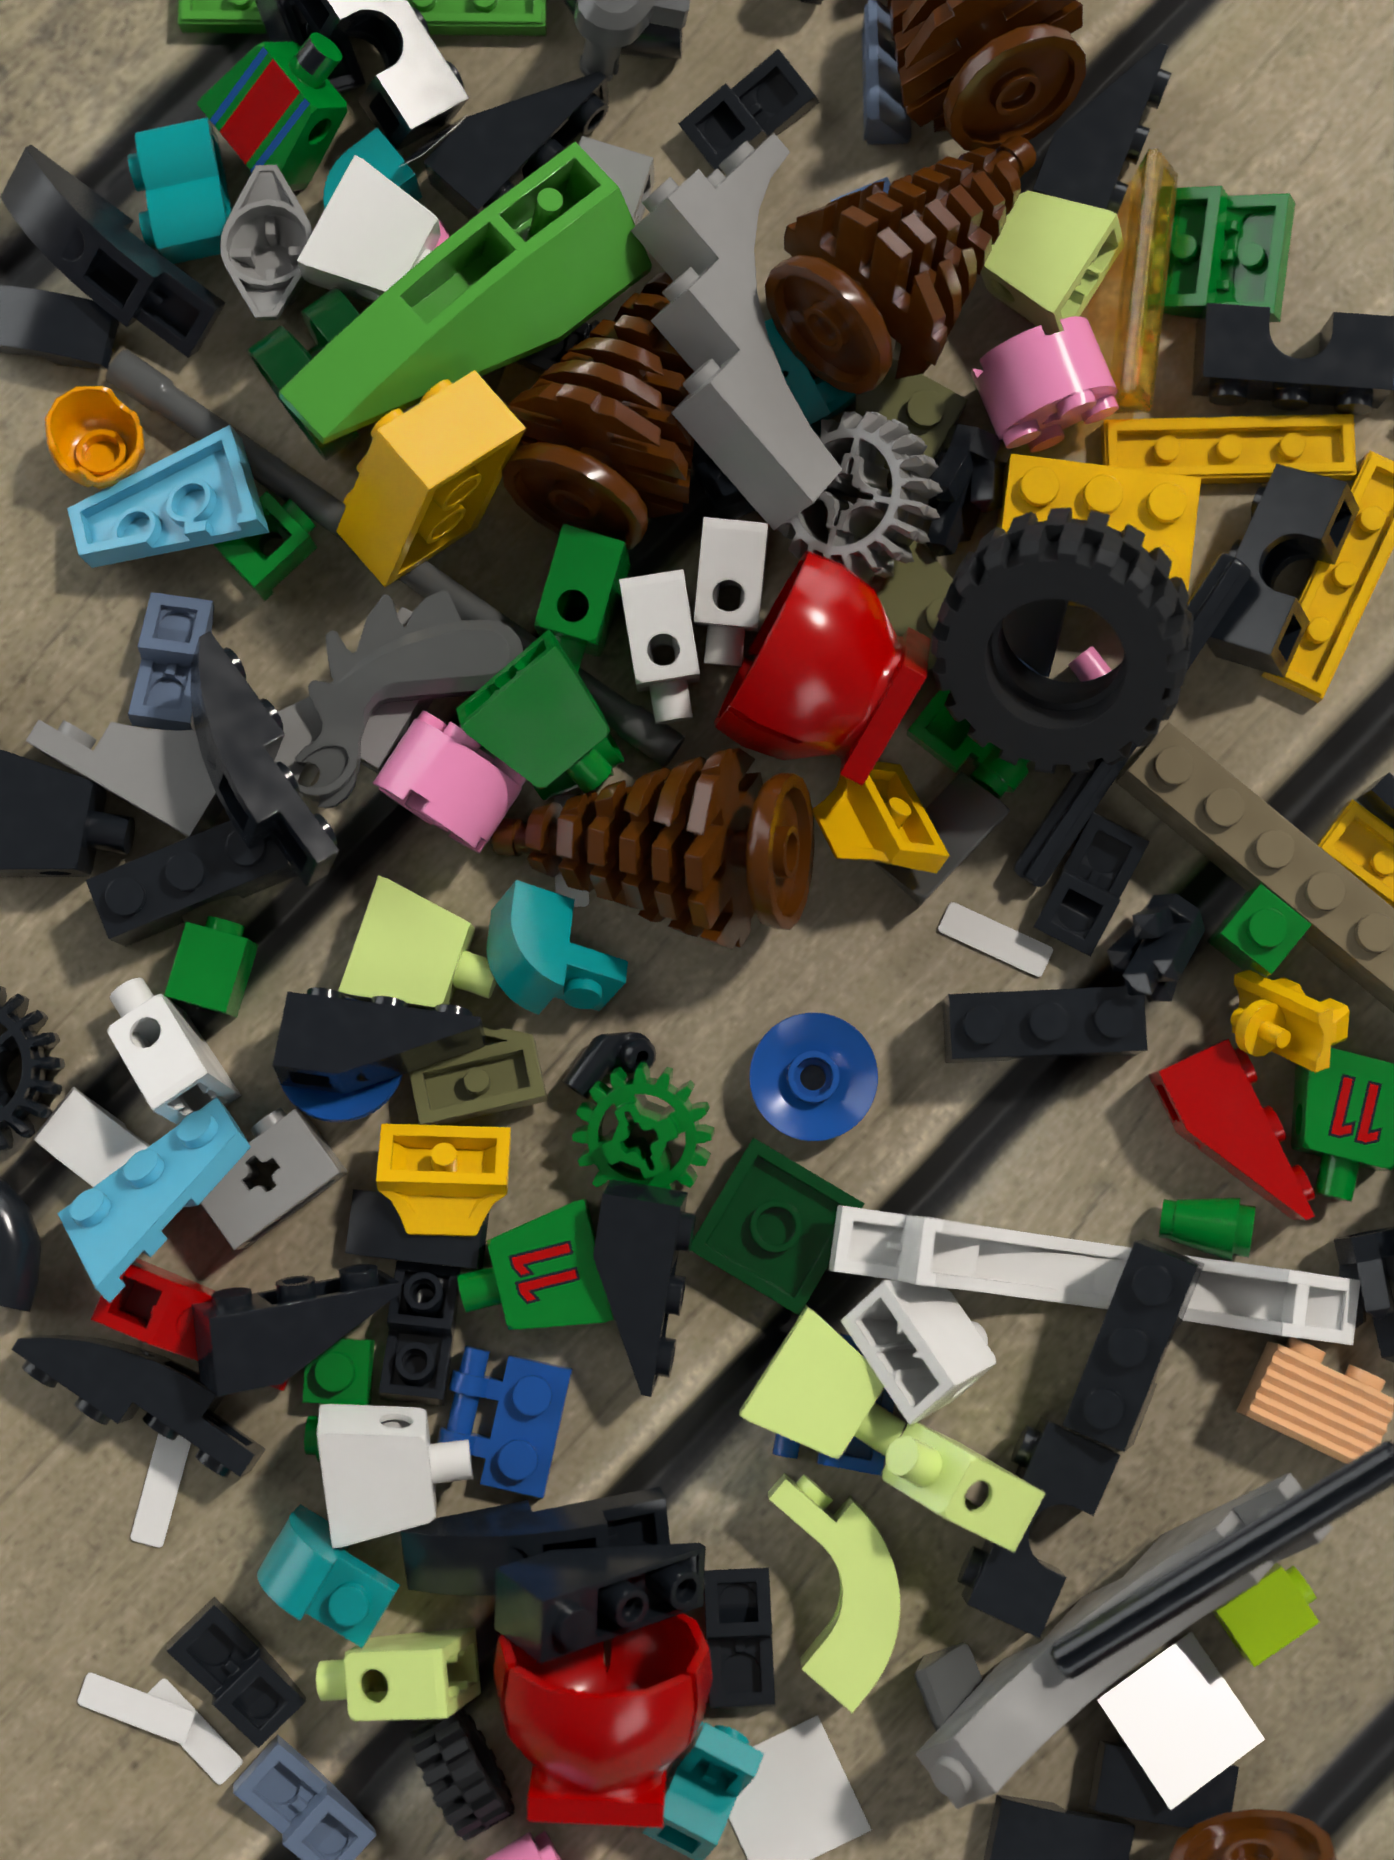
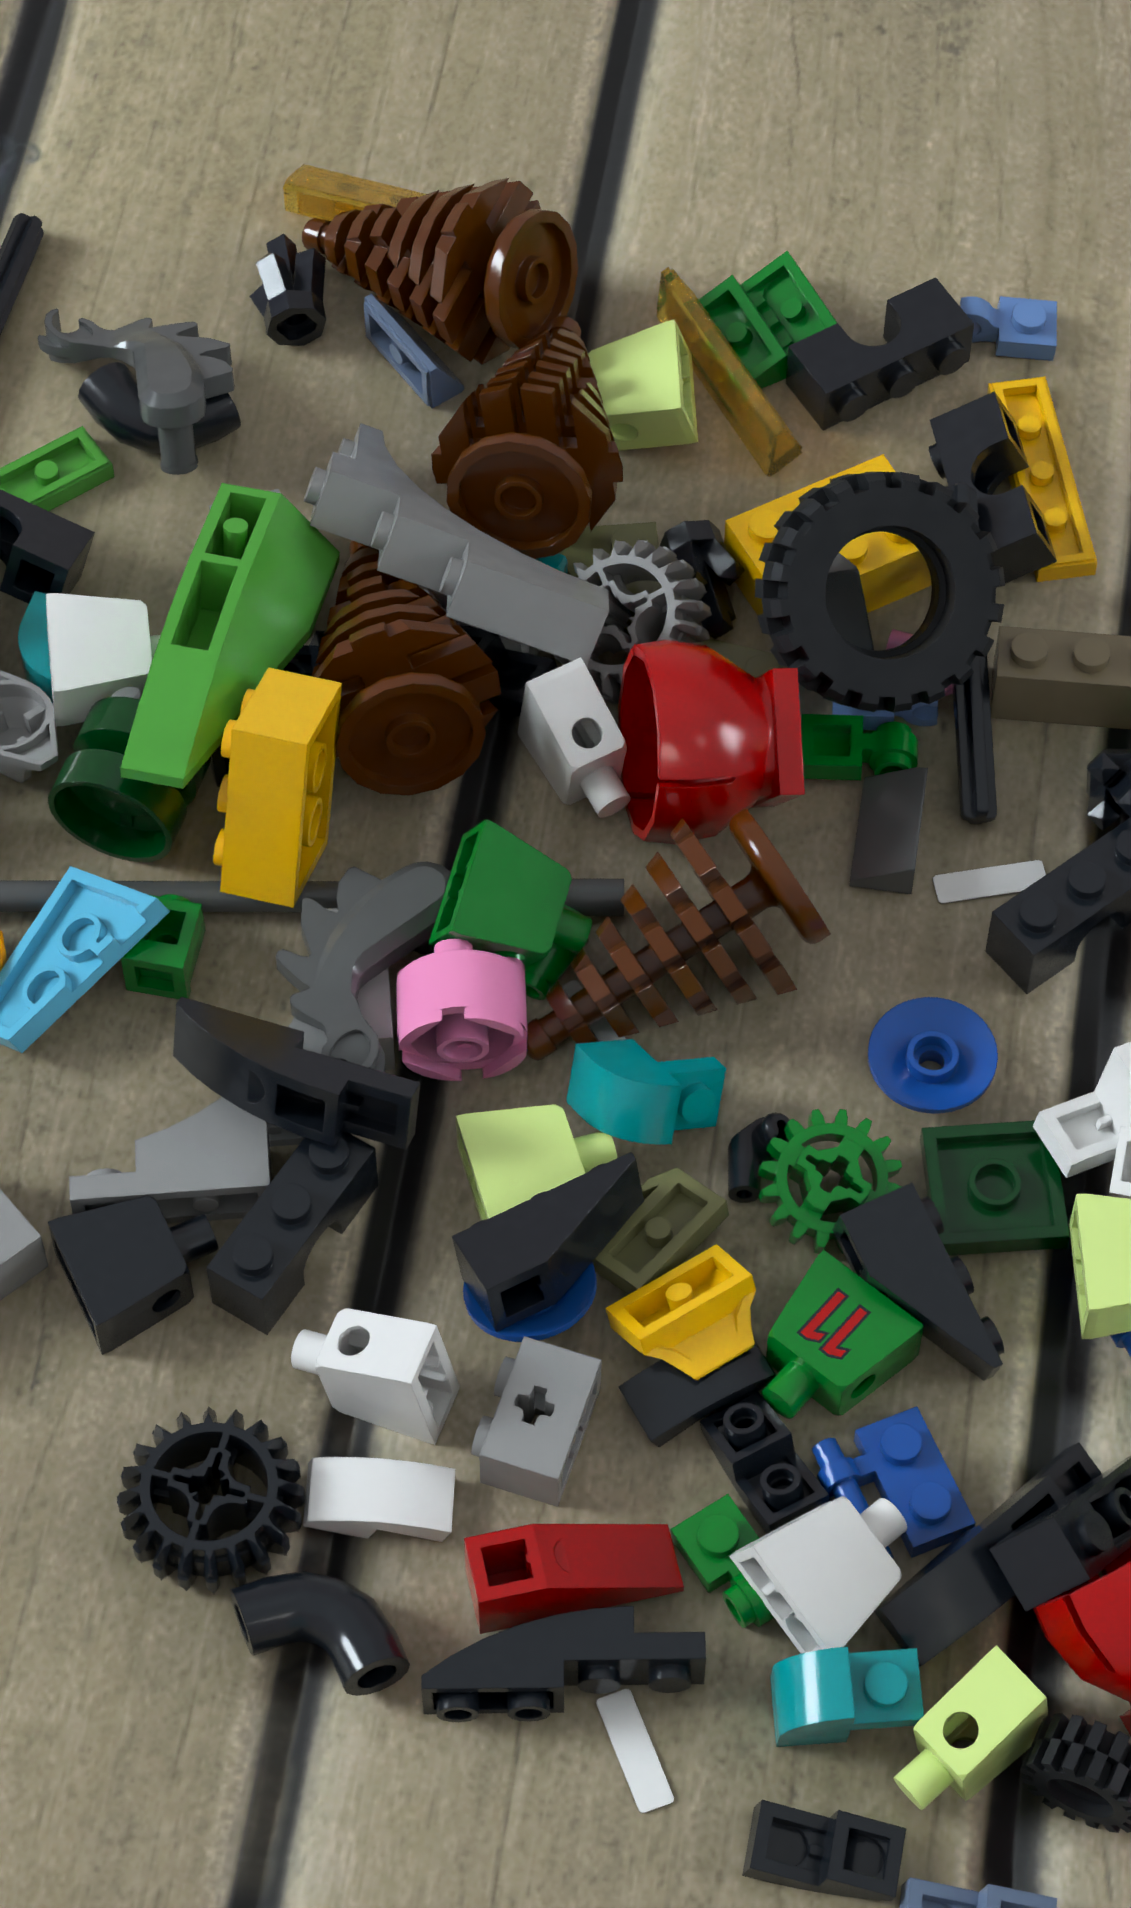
camera: 40 degrees left, 25 degrees down
(140, 1198) = (449, 1478): medium azure wing -> none
(166, 652) = (141, 1079): sand blue slope -> none
(212, 966) = (361, 1276): green brick -> none
(272, 1334) = (648, 1517): black slope -> none
(435, 139) = (86, 579): black sticker -> none
(513, 140) = (154, 545): black slope -> none
(582, 577) = (454, 794): green torso -> none
(658, 616) = (551, 805): white torso -> none
(751, 110) = (328, 415): black slope -> none
(880, 822) = (828, 831): yellow slope -> none
(1045, 384) = (711, 463): bright pink brick -> none
(1091, 883) = (1031, 790): black slope -> none
(1097, 140) = (617, 291): black slope -> none
(1233, 447) = (898, 432): yellow tile -> none

